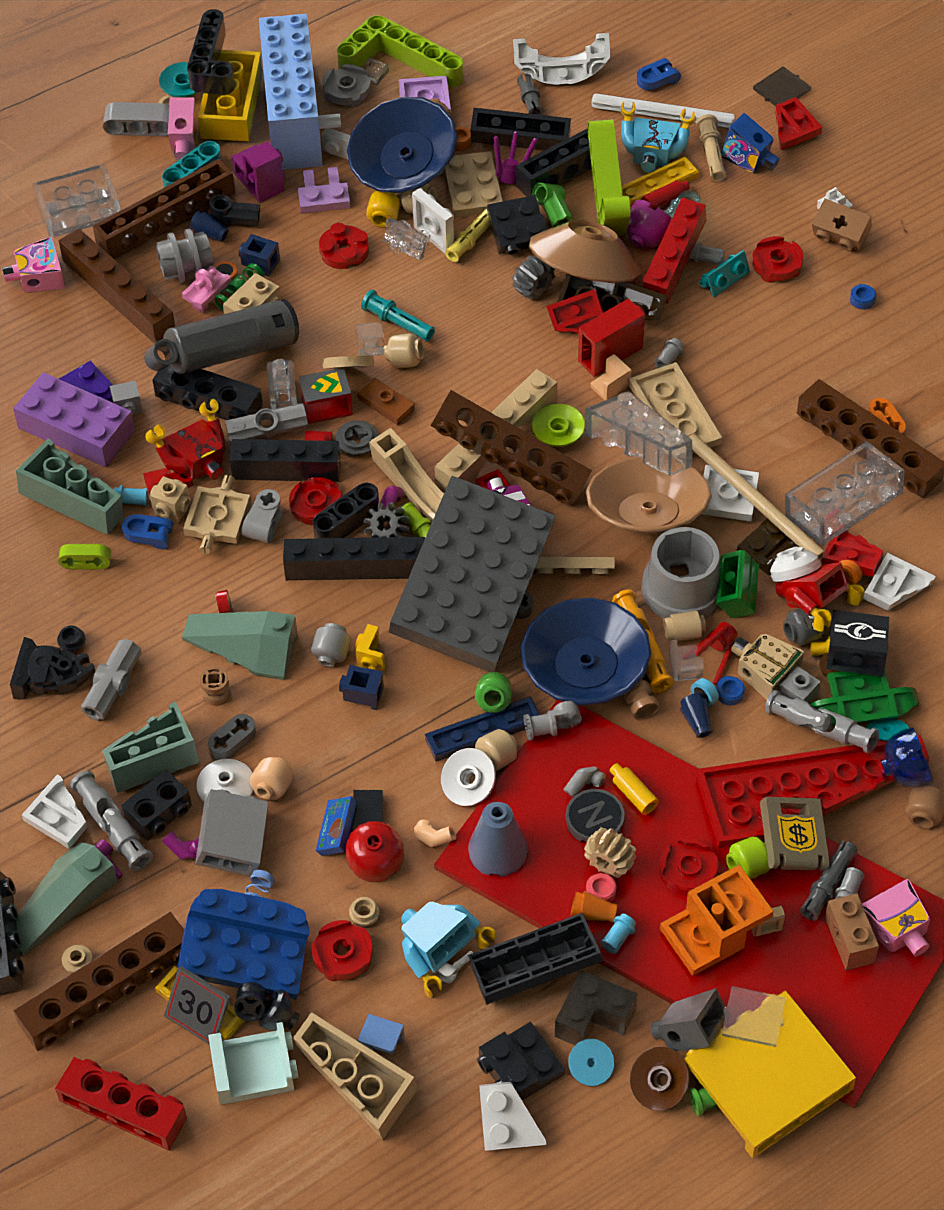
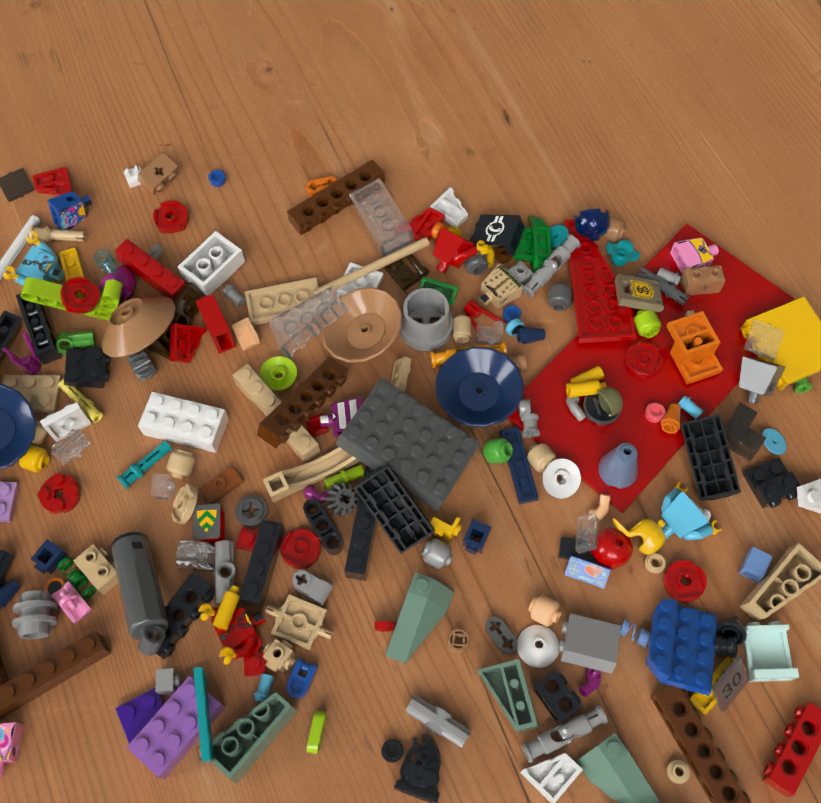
camera: 80 degrees left, 10 degrees up
(83, 425) = (203, 713): none -> teal tile
(106, 849) = (588, 744): magenta hand -> none
(216, 427) = (226, 608): none -> yellow cylinder
(373, 571) = (394, 508): none -> black piece
(389, 813) = (587, 533): none -> clear plate
(398, 887) = (651, 534): none -> yellow hair
(462, 340) = (183, 422): none -> white brick
(592, 808) = (610, 400): none -> olive hair
(610, 852) = (638, 398): tan gear -> none
(611, 169) = (73, 303): none -> red plate
(611, 781) = (584, 388): none -> yellow cylinder
(646, 1078) = (796, 406): reddish brown dish -> none
(665, 194) = (89, 269): red cylinder -> none
(707, 315) = (211, 263): none -> white brick
(726, 274) = (170, 243): teal hinge -> none
(772, 741) = (560, 296): none -> dark grey head
(794, 564) = (438, 257): white piece -> none
(889, 826) = (622, 252): none -> teal plate

